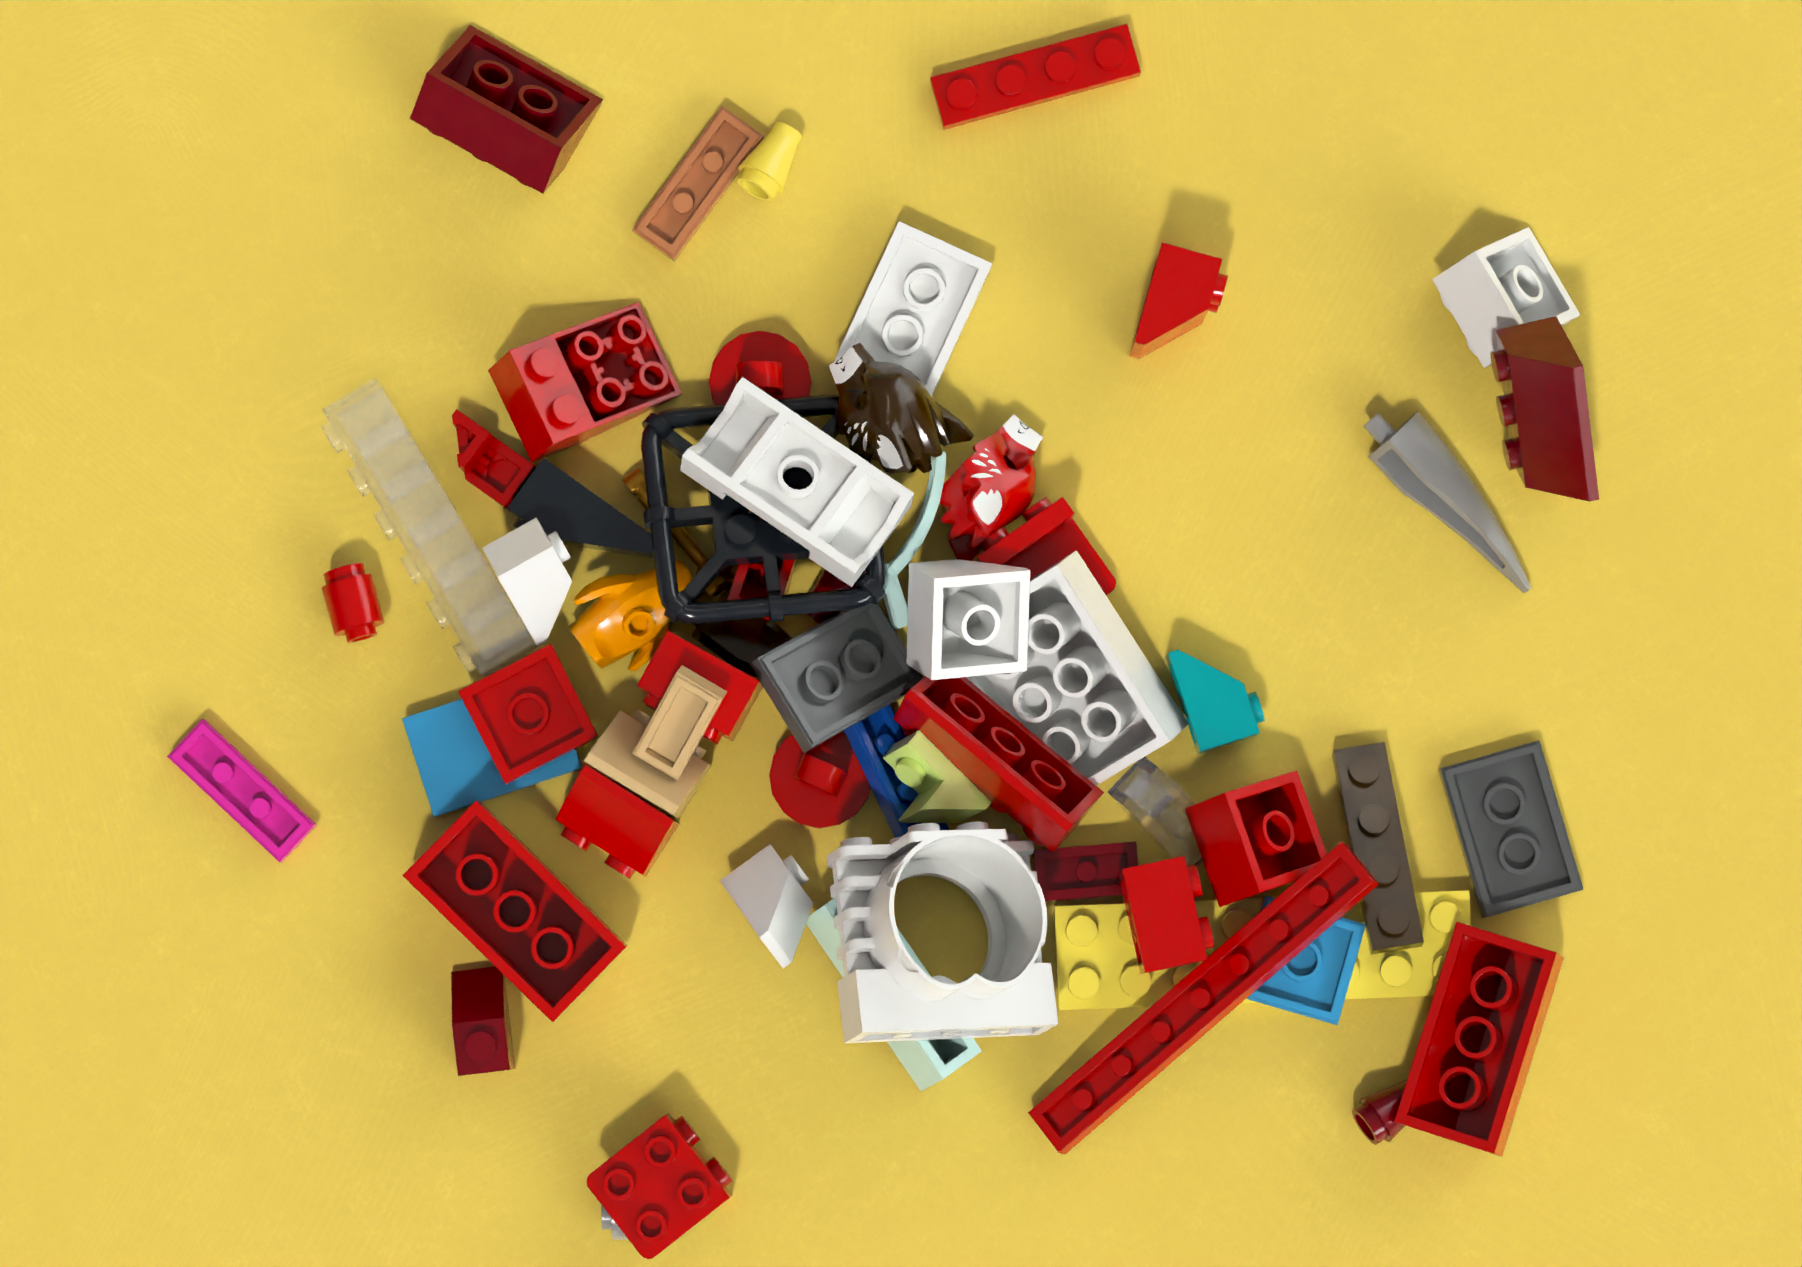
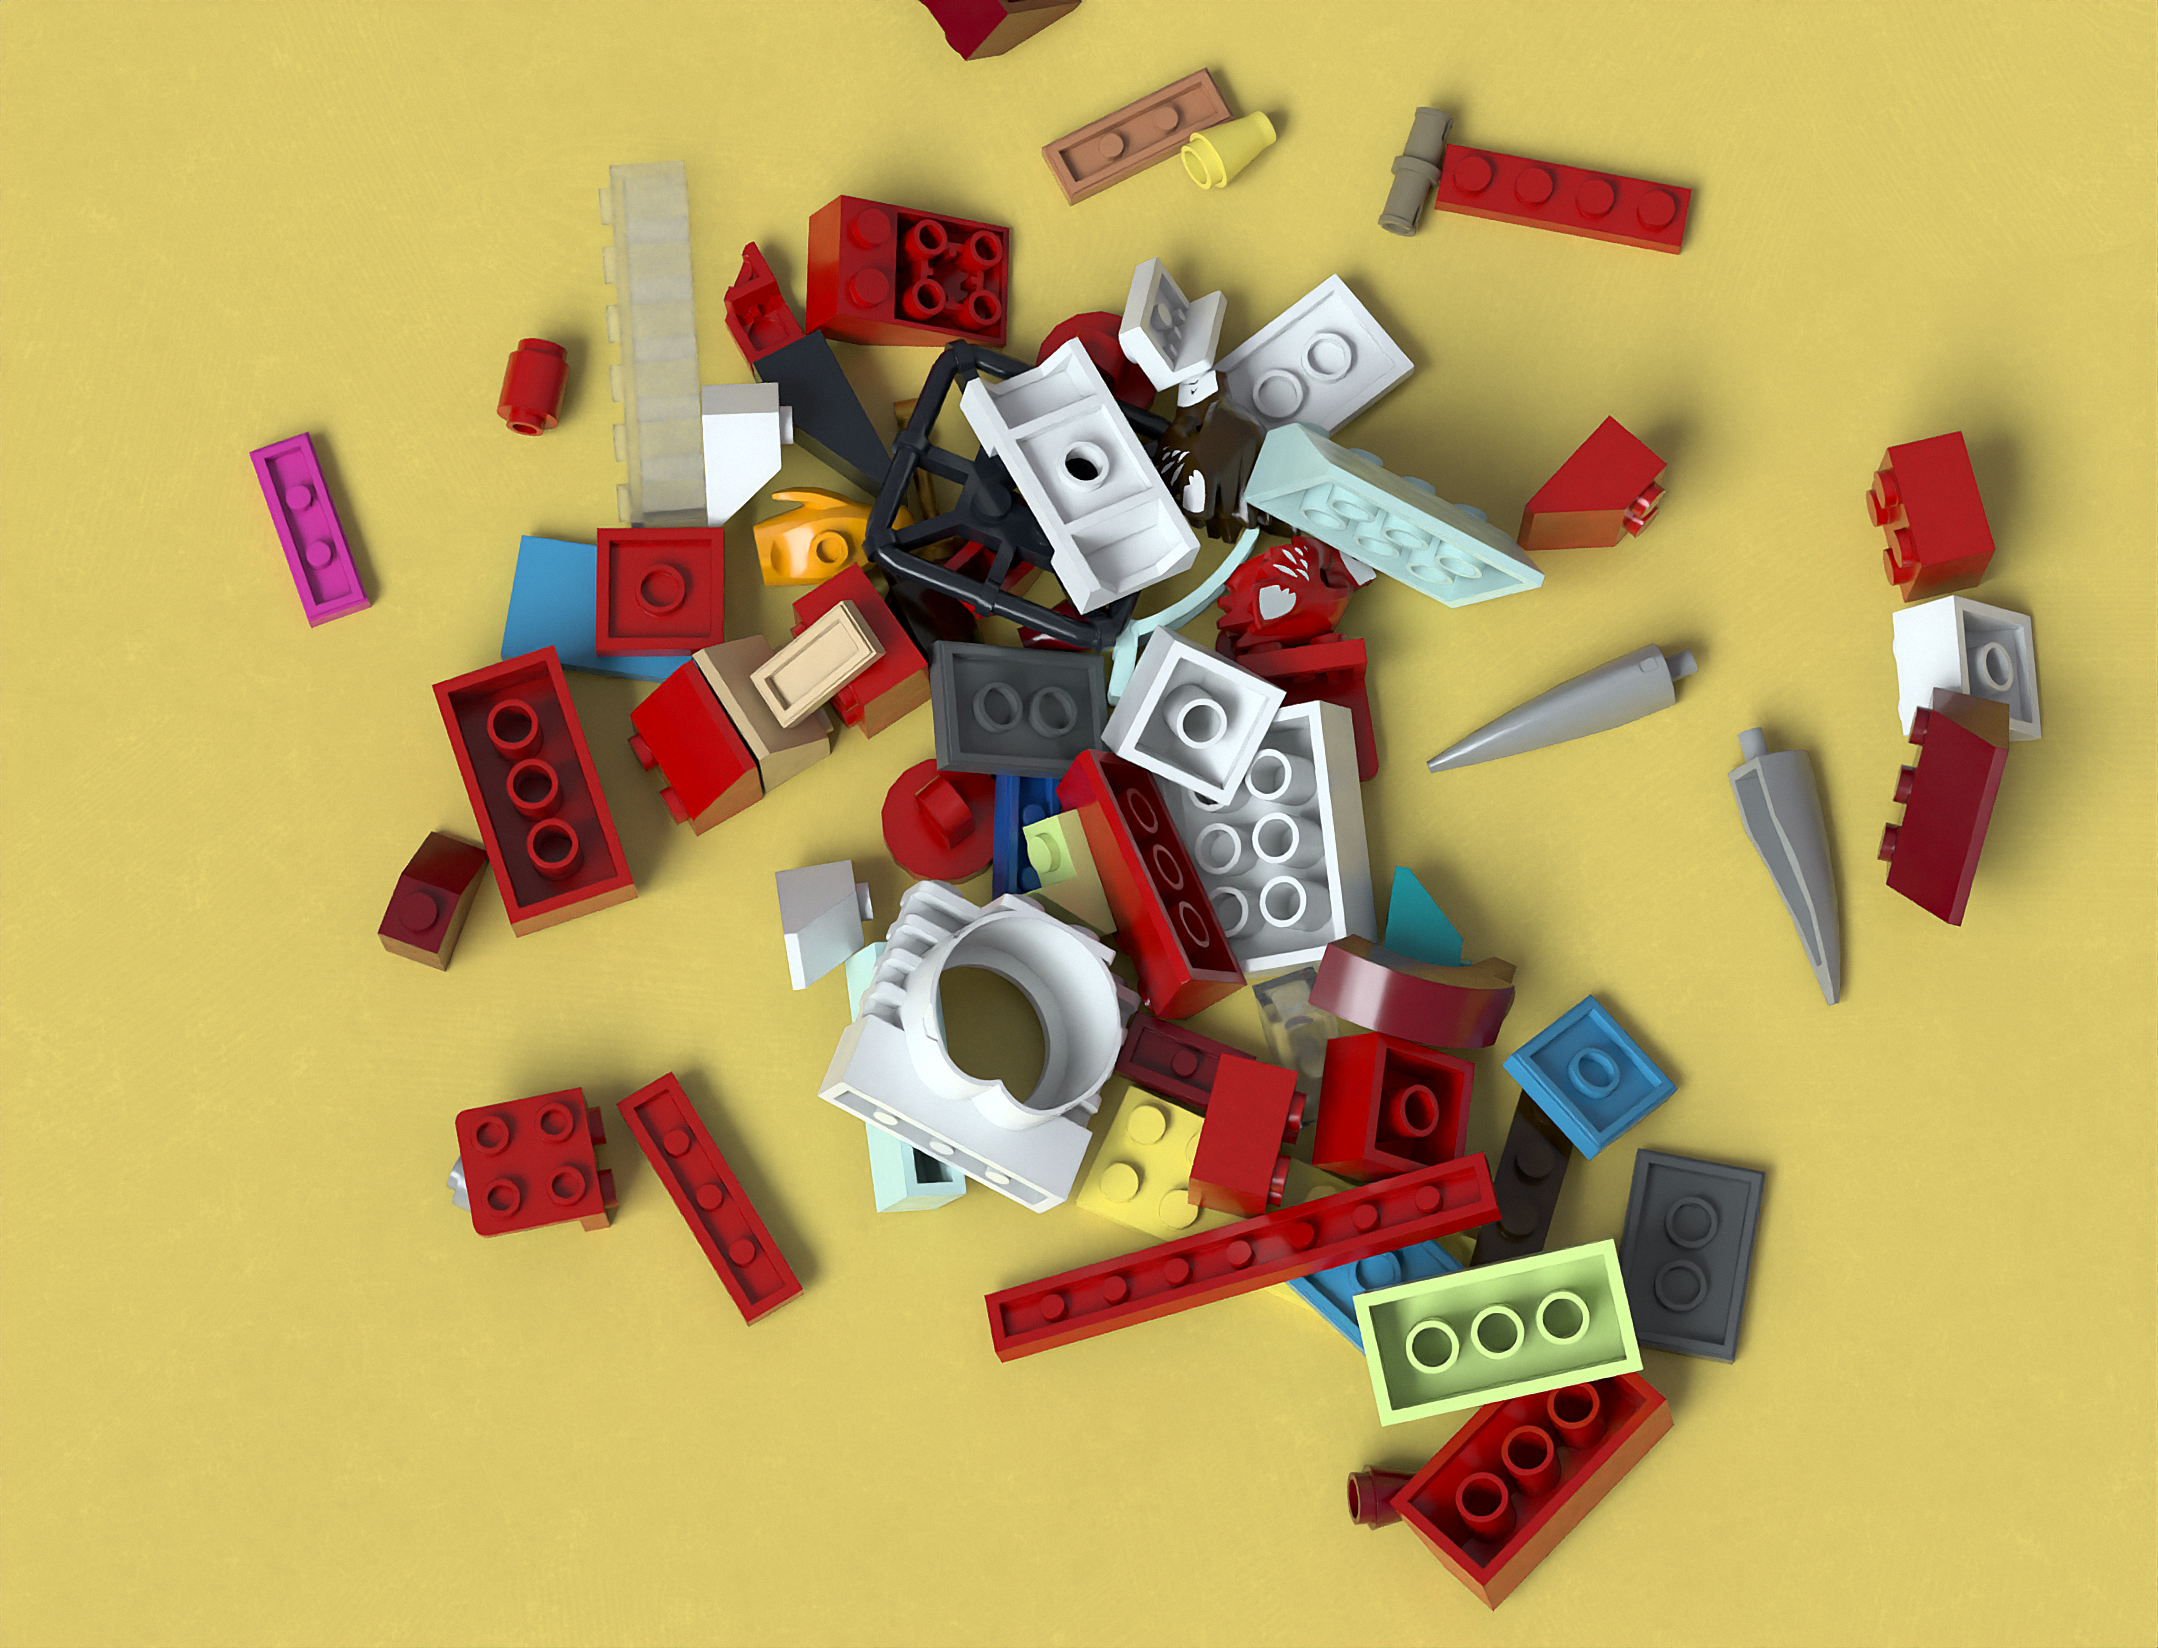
camera: 25 degrees right, 10 degrees down
(795, 1141) = (710, 1199): none -> red plate
(802, 329) = (1165, 331): none -> white bracket
(917, 110) = (1415, 171): none -> dark tan pin
(1036, 396) = (1386, 518): none -> light aqua slope
(1234, 462) = (1579, 707): none -> light grey piece
(1236, 753) = (1414, 997): none -> dark red arch
(1382, 736) = (1590, 1077): none -> dark azure tile
(1416, 968) = (1497, 1331): none -> yellowish green brick
(1426, 195) = (1930, 517): none -> red brick

